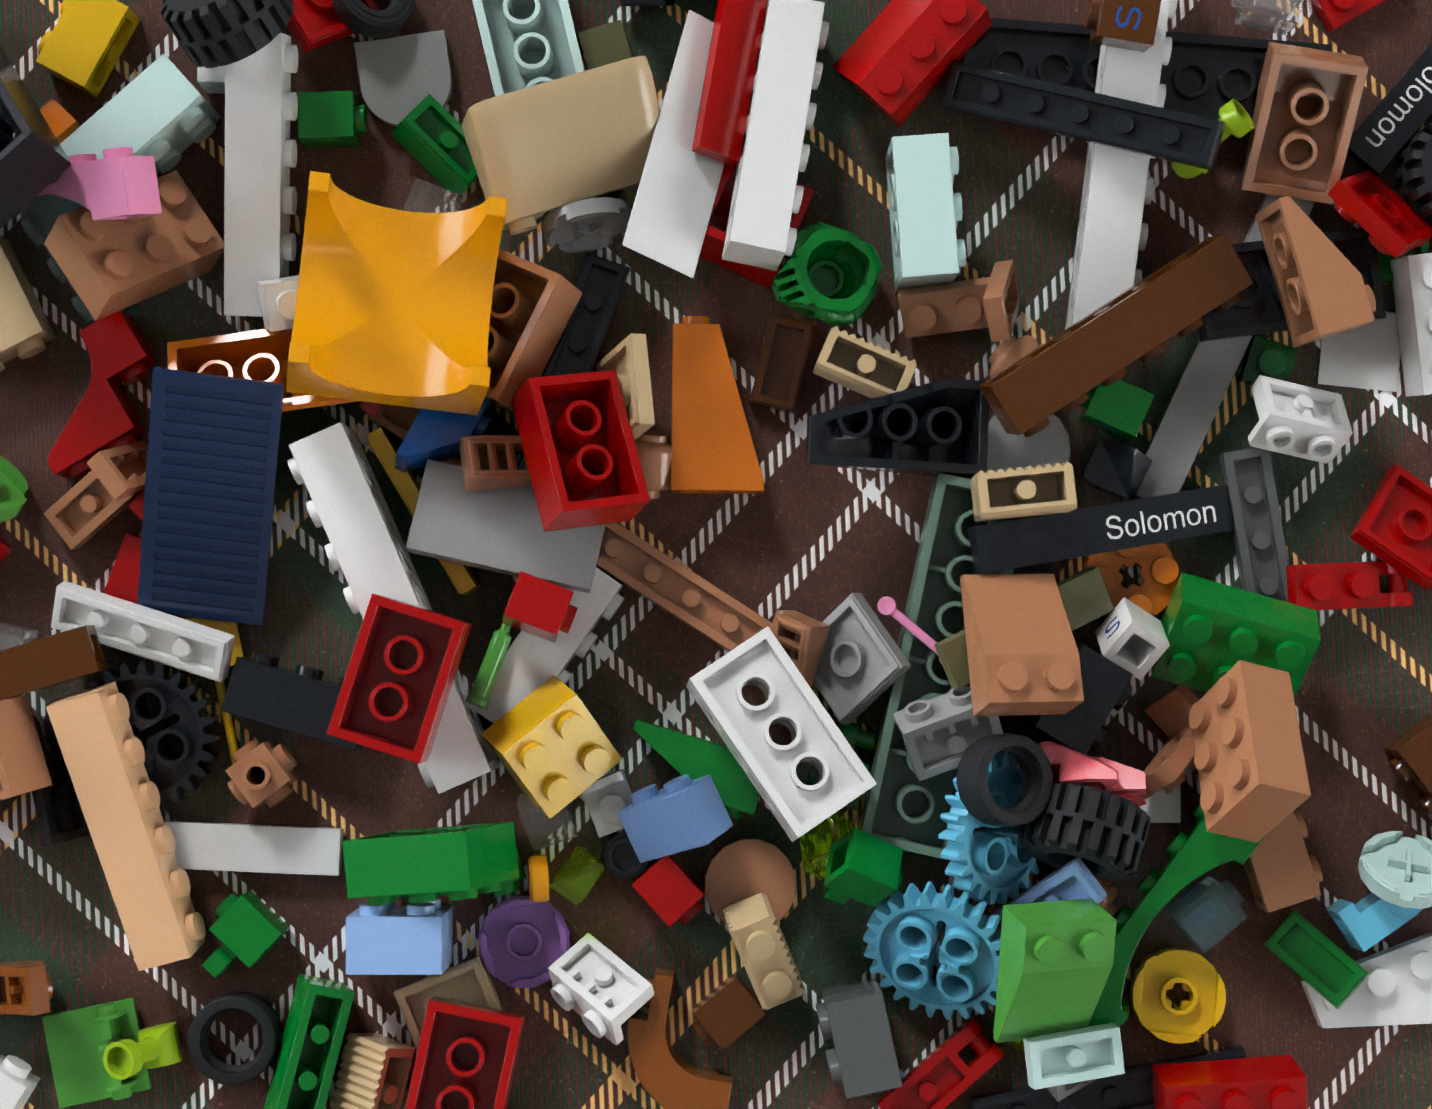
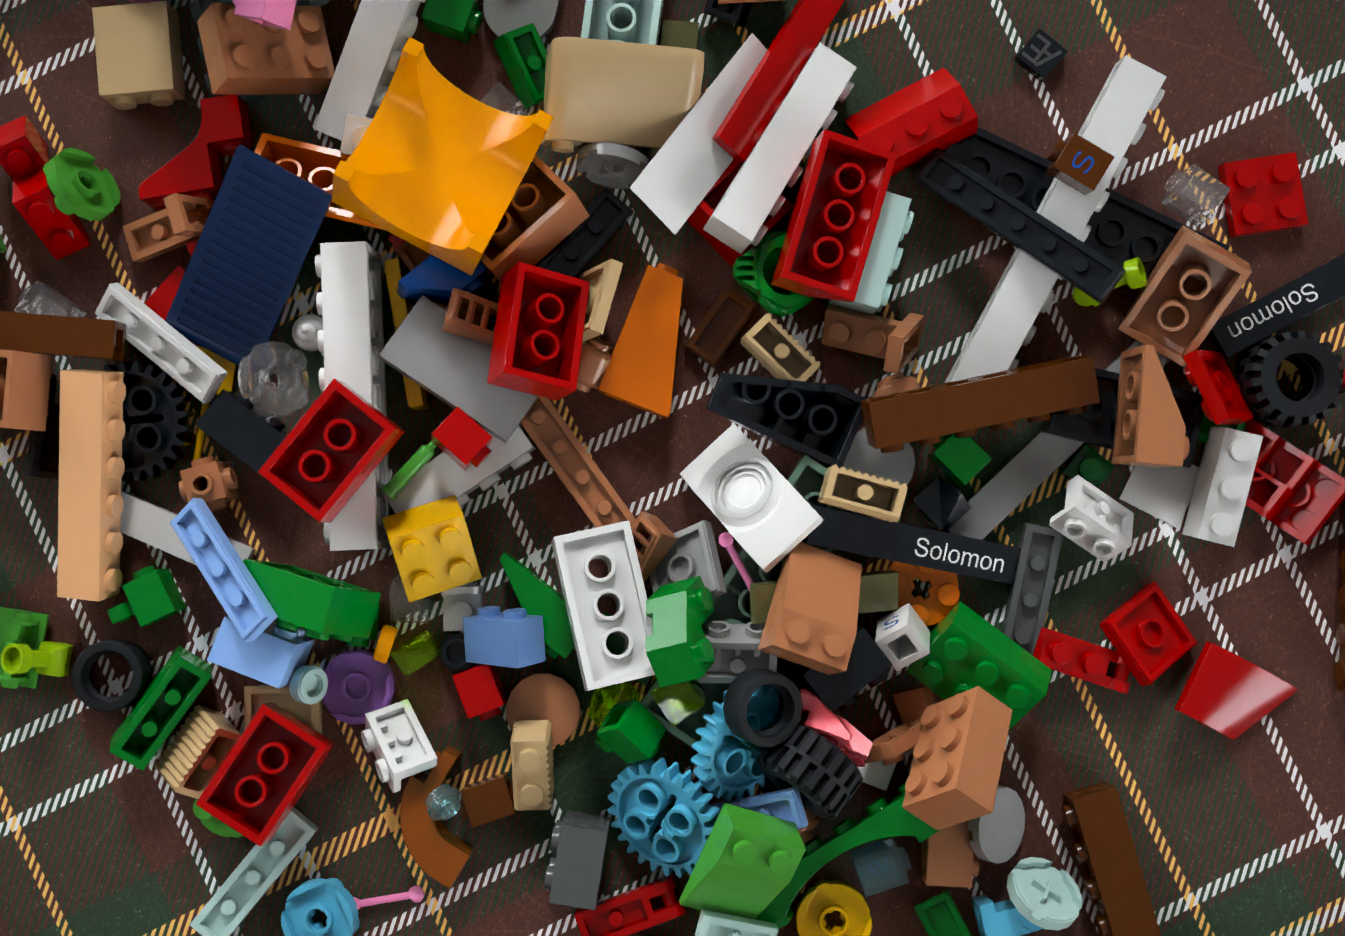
camera: 20 degrees right, 0 degrees up
(303, 602) = (292, 379): none -> clear plate
(307, 552) = (306, 331): none -> white plate
(323, 863) = (223, 569): none -> light blue tile
(469, 959) = (308, 684): none -> light aqua tile
(679, 1033) = (443, 802): none -> clear light blue plate
(868, 189) = (834, 218): none -> red slope
(881, 745) = (677, 643): none -> green brick
(896, 546) = (751, 498): none -> white slope
(902, 809) = (677, 701): none -> clear neon green slope
(1327, 817) = (1000, 832): none -> light grey tile

